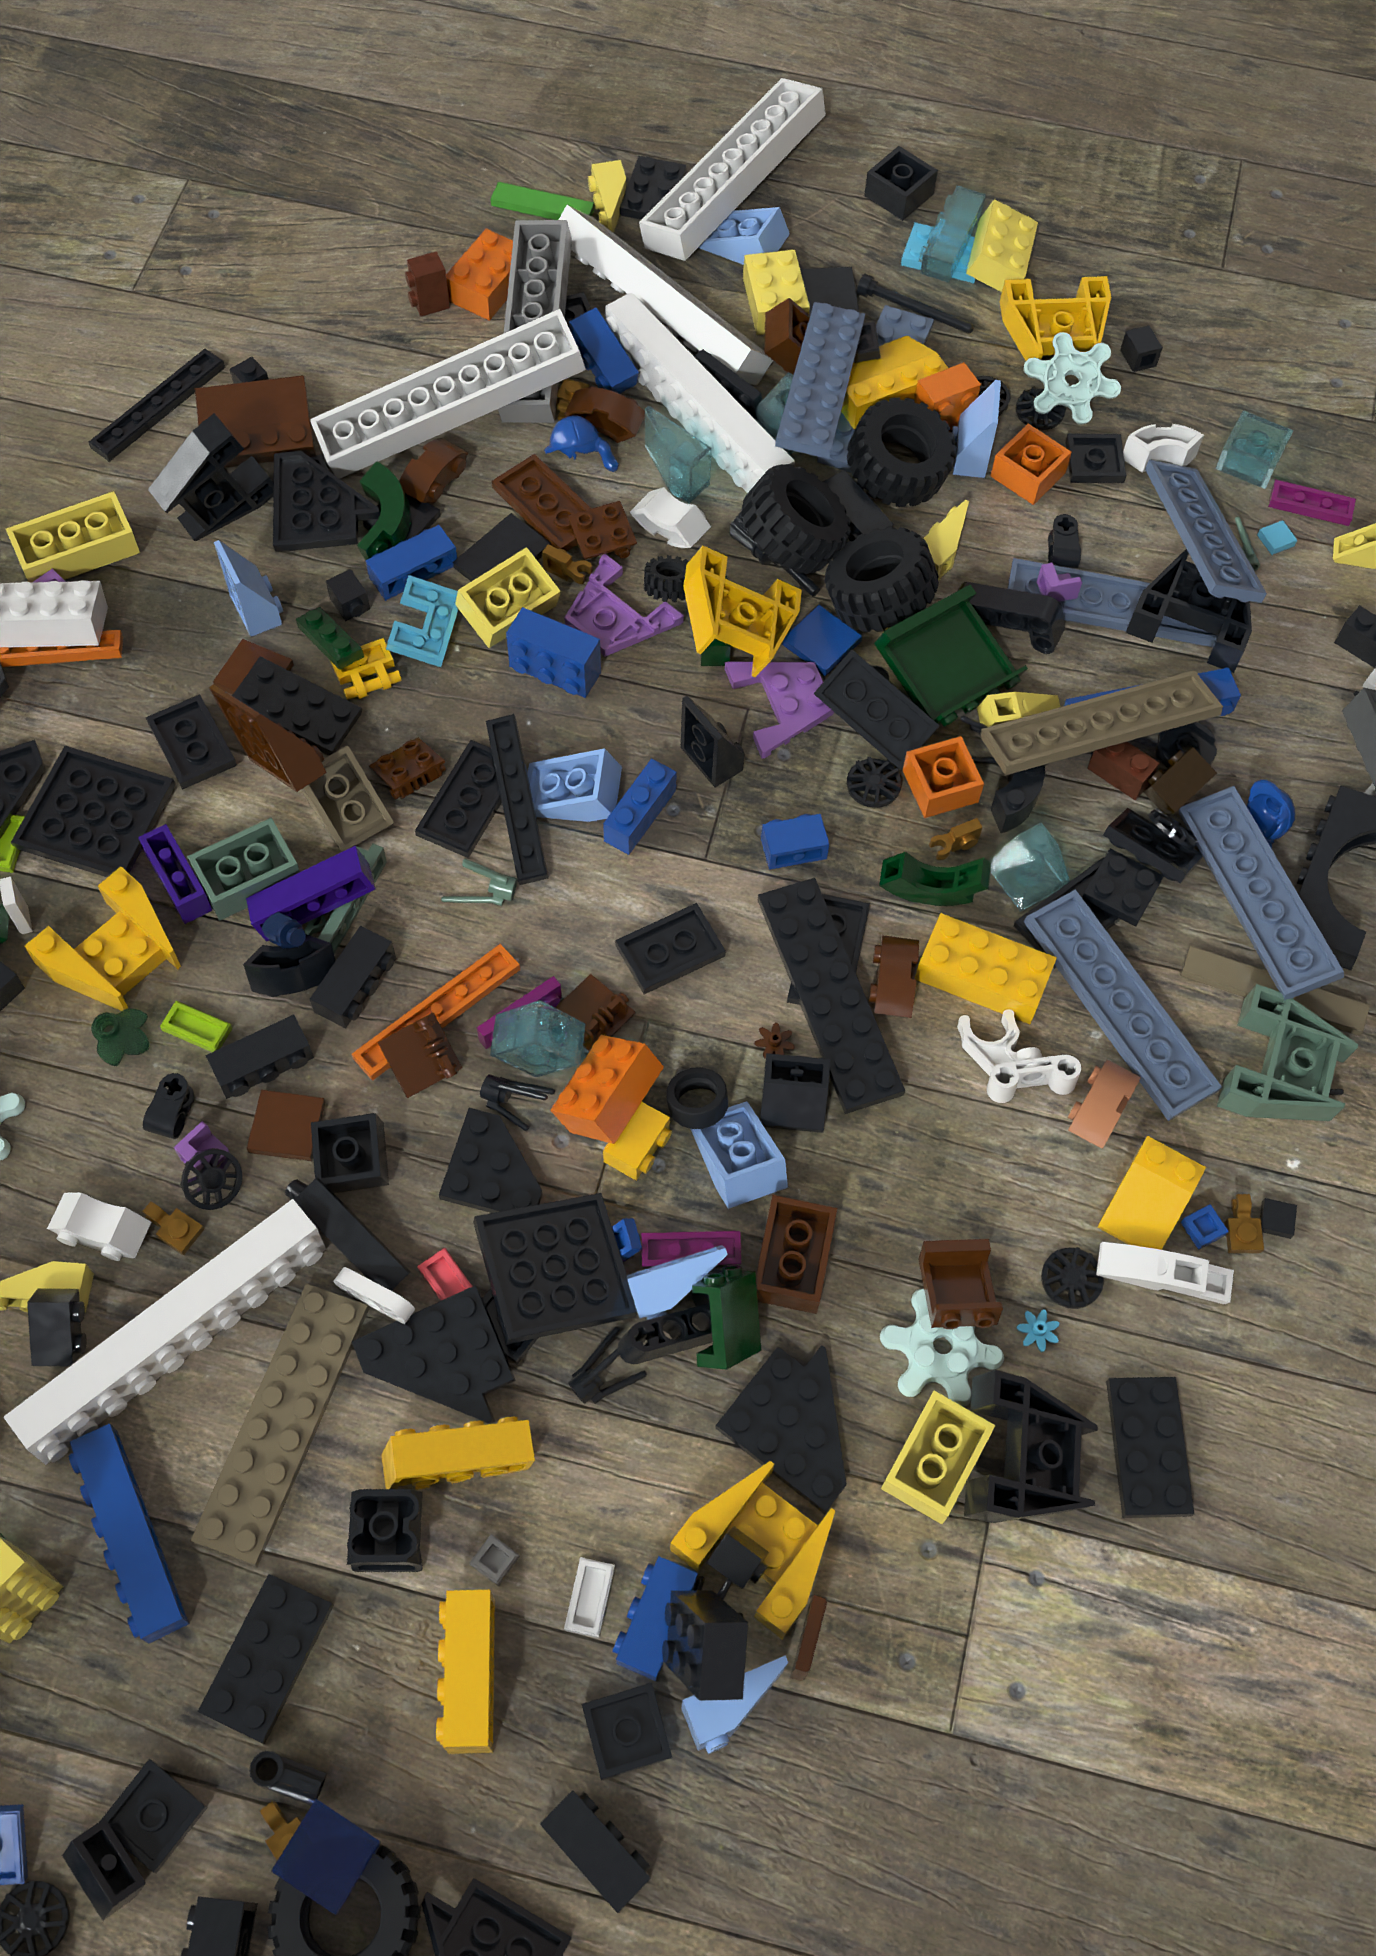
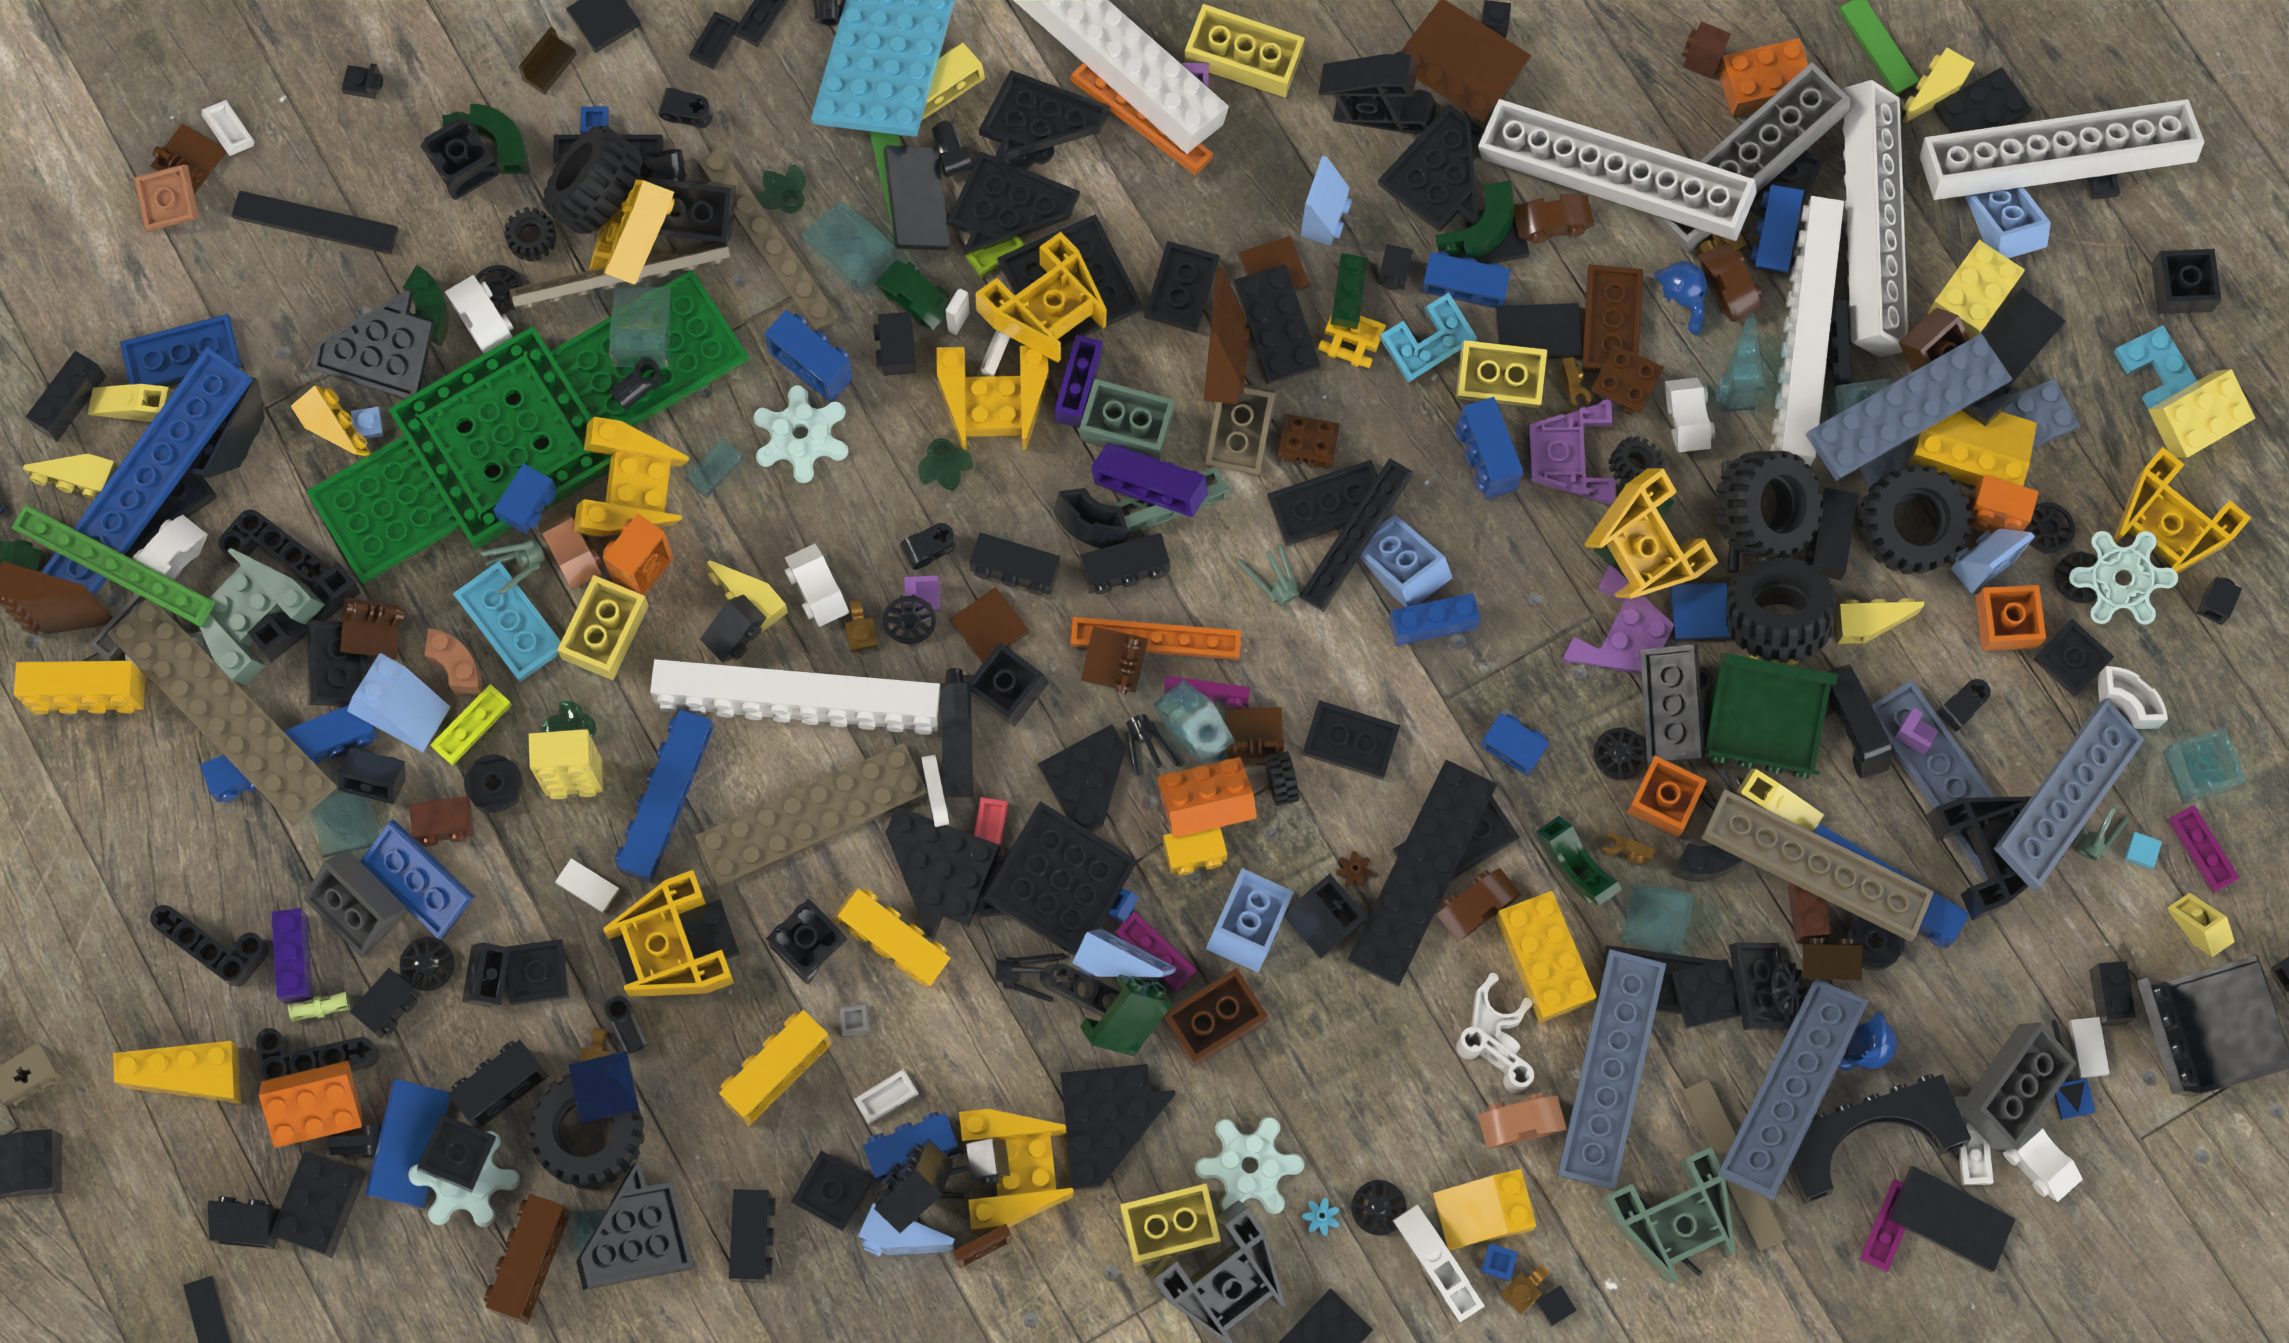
camera: 45 degrees right, 10 degrees up
(79, 909) = (993, 354): none -> white tile
(91, 834) = (1049, 304): none -> yellow wedge
(128, 1686) = (587, 886): none -> white tile
(196, 1027) = (996, 503): lime tile -> none
(254, 1668) = (661, 946): none -> yellow wedge
(284, 931) = (1105, 492): dark blue arm -> none
(650, 1021) = (1282, 778): none -> black tyre
(697, 1079) = (1269, 841): black tyre -> none
(709, 744) = (1529, 619): black slope -> none
(782, 176) = (2103, 186): none -> black tile
(869, 287) = (2060, 351): black piece -> none
(951, 234) = (2171, 366): clear light blue brick -> none
(959, 1283) = (1298, 1139): reddish brown panel -> none

